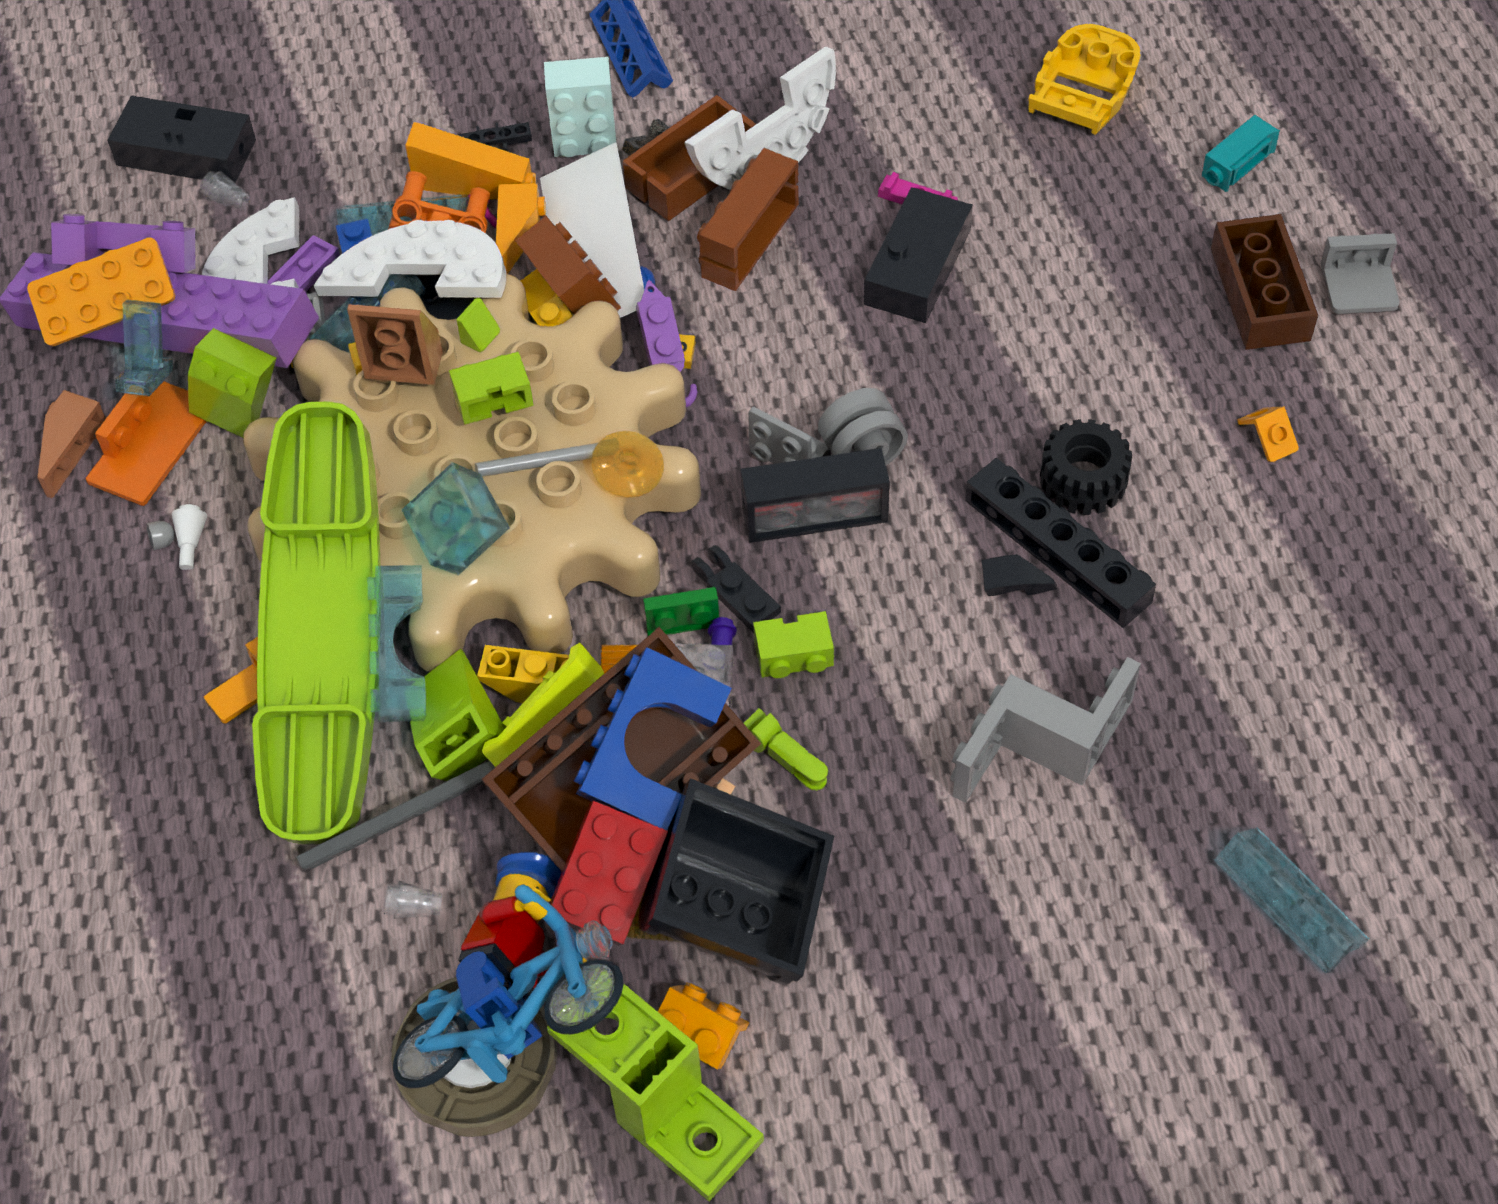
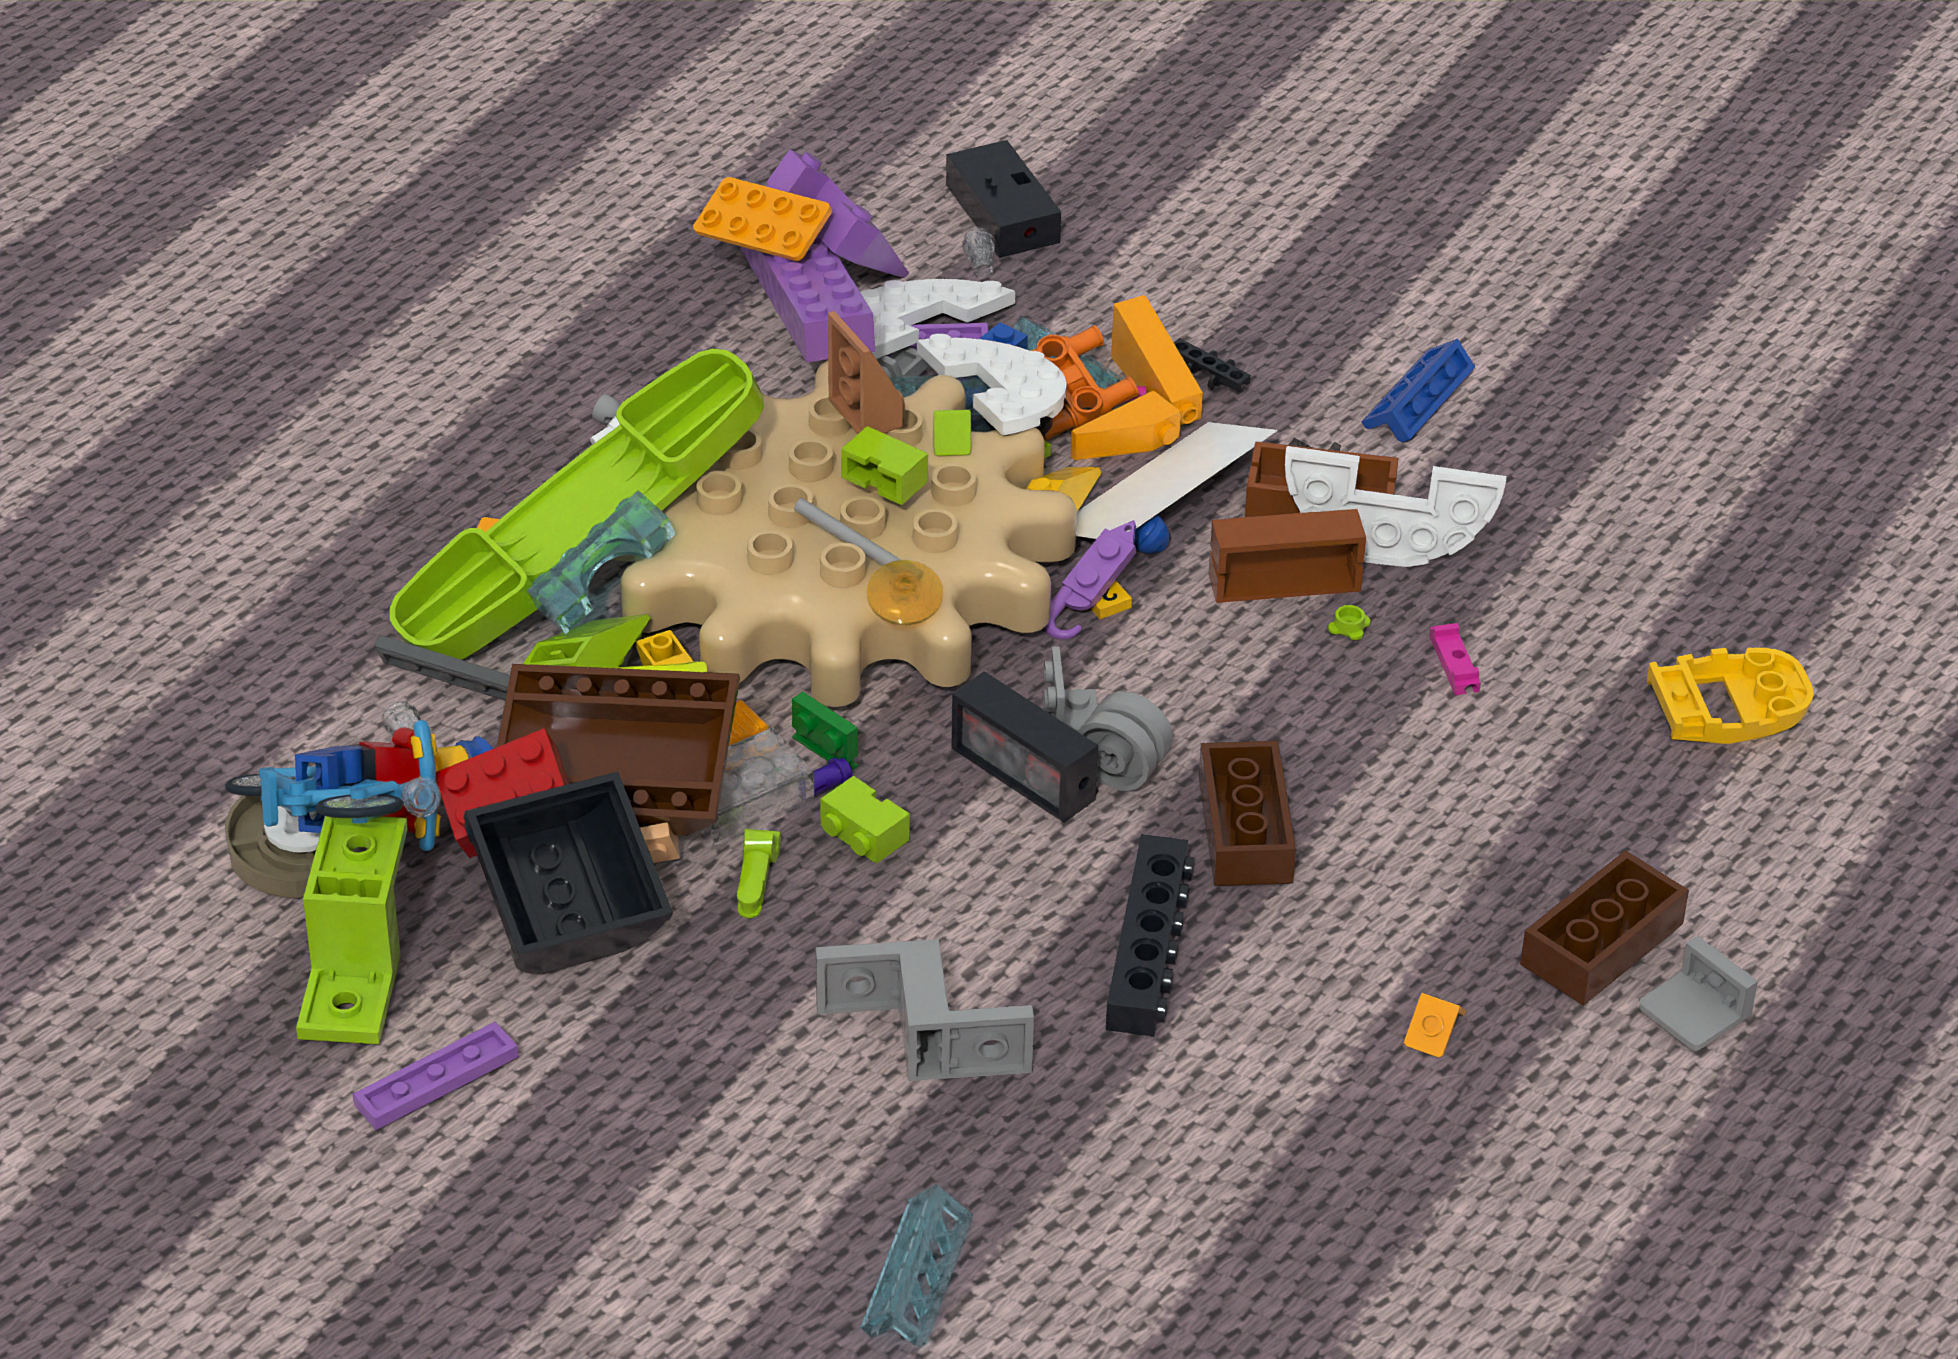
camera: 50 degrees right, 15 degrees down
(66, 437) = (643, 308): nougat slope -> none
(143, 349) = (738, 294): clear light blue bracket -> none
(143, 442) = (681, 334): orange bracket -> none
(228, 381) = (766, 335): lime slope -> none
(455, 519) = (732, 513): clear light blue brick -> none
(564, 266) = (1097, 472): dark orange brick -> none
(580, 105) = (1284, 383): light aqua brick -> none
(652, 684) = (679, 697): blue arch -> none
(703, 1021) = (448, 948): light orange bracket -> none
(736, 589) = (892, 761): black hinge -> none
(831, 229) = (1349, 622): none -> lime plate
(840, 1119) = (435, 1075): none -> medium lavender plate
(918, 255) = (1376, 686): black brick -> none
(988, 406) = (1246, 813): none -> reddish brown brick
(1012, 574) = (1084, 923): black slope -> none
(1080, 487) = (1247, 908): black tyre -> none
(1240, 153) = (1759, 842): teal window -> none

